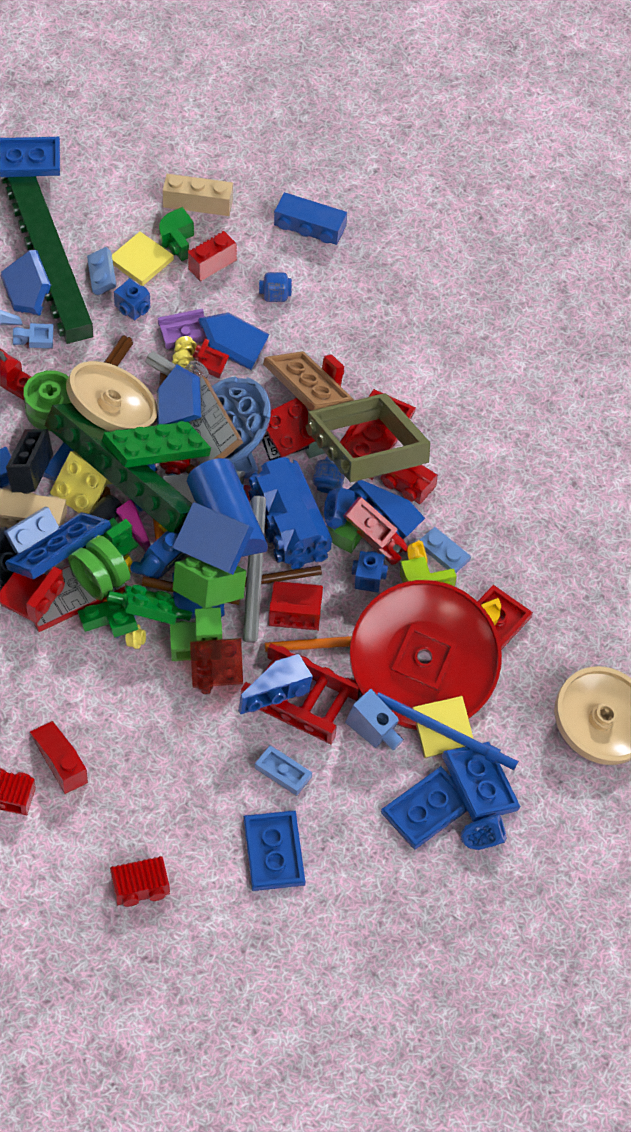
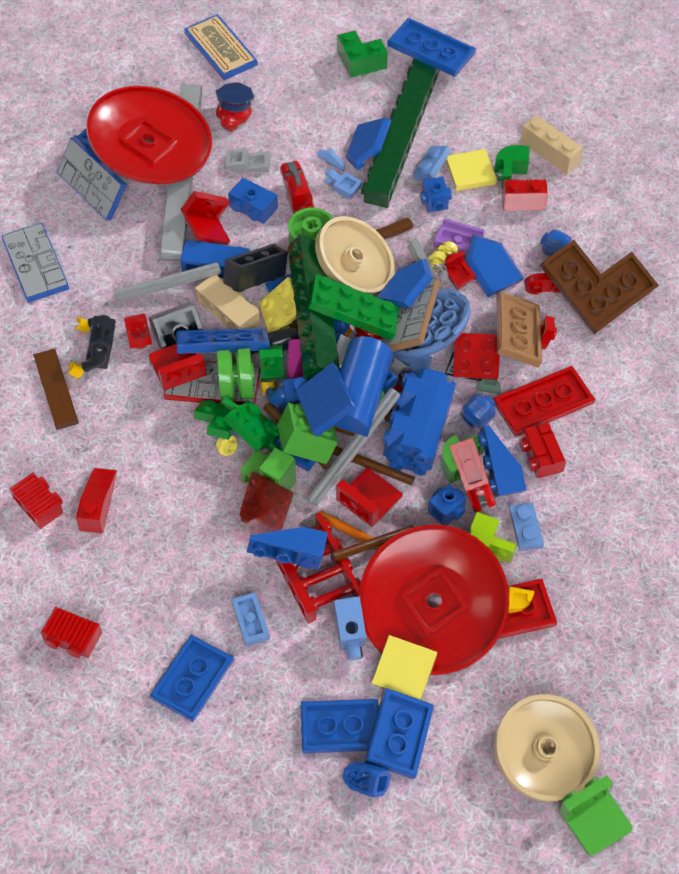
camera: 40 degrees right, 0 degrees up
(31, 530) = (212, 318): plate -> none
(289, 330) = (539, 283): none -> red plate
(310, 218) = (627, 208): blue brick -> none
(335, 641) = (365, 545): none -> reddish brown bar
(336, 505) = (460, 431): blue rock -> none
(346, 313) = (595, 295): none -> reddish brown plate
(412, 453) = (533, 373): olive window -> none
(416, 550) = (499, 512): yellow tile -> none
(491, 753) = (423, 715): blue bar -> none

